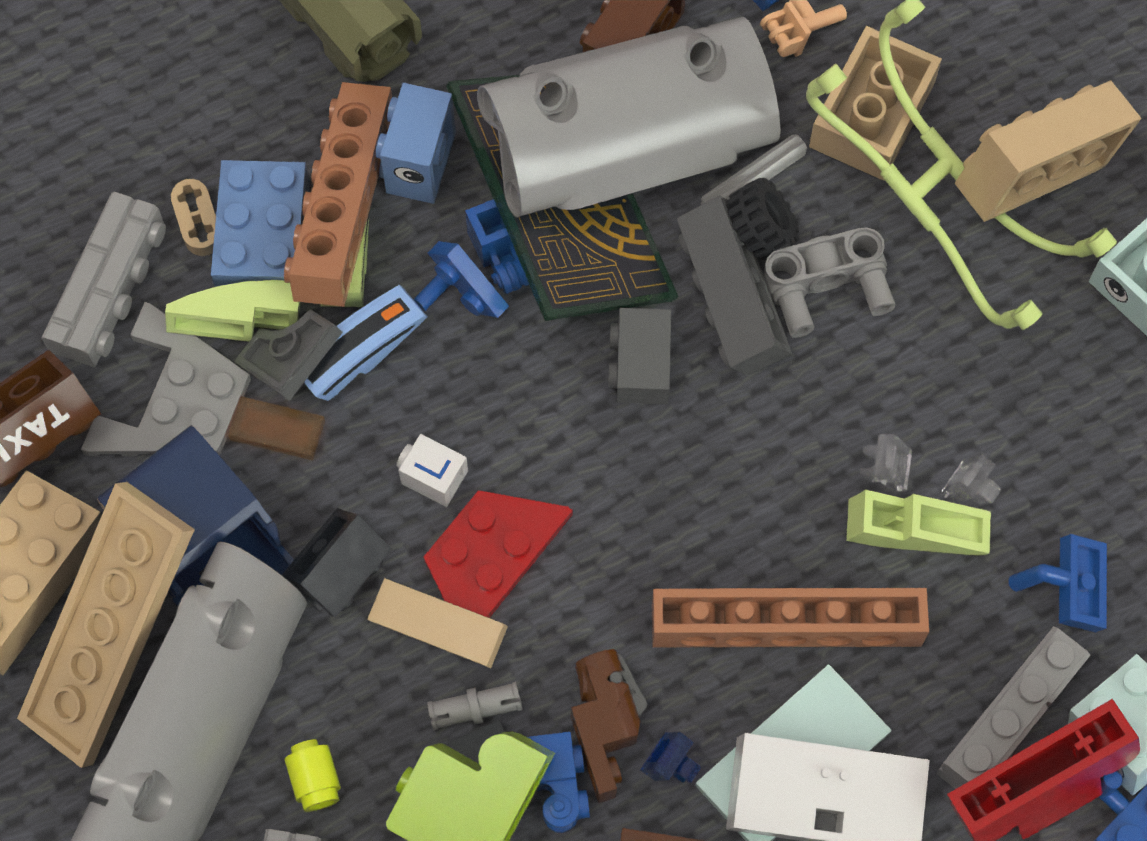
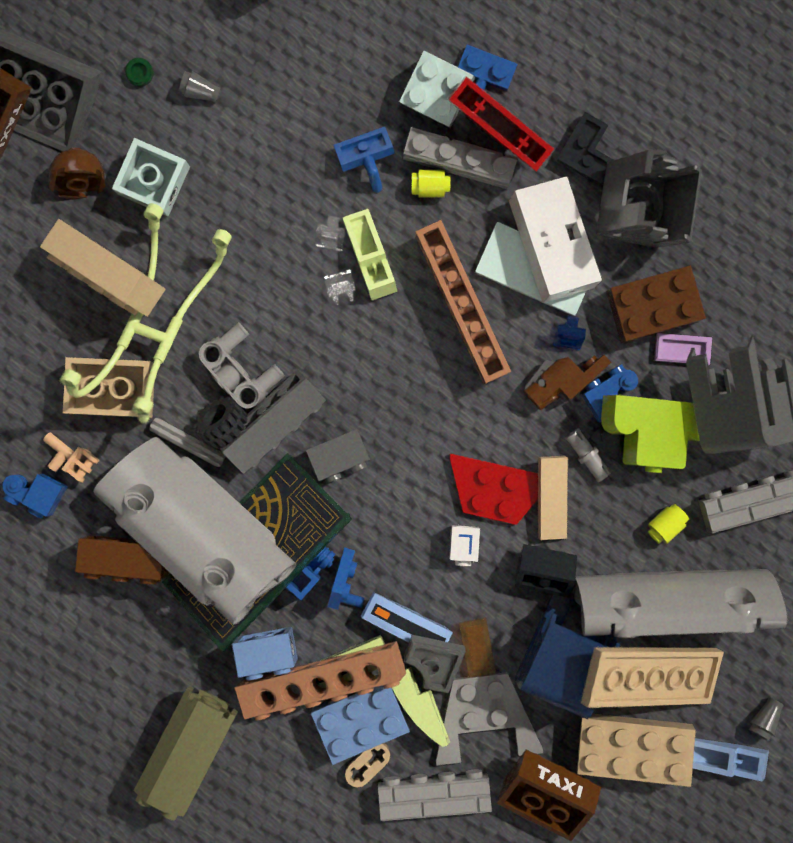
camera: 125 degrees left, 20 degrees up
(991, 656) = (430, 183): none -> neon yellow brick

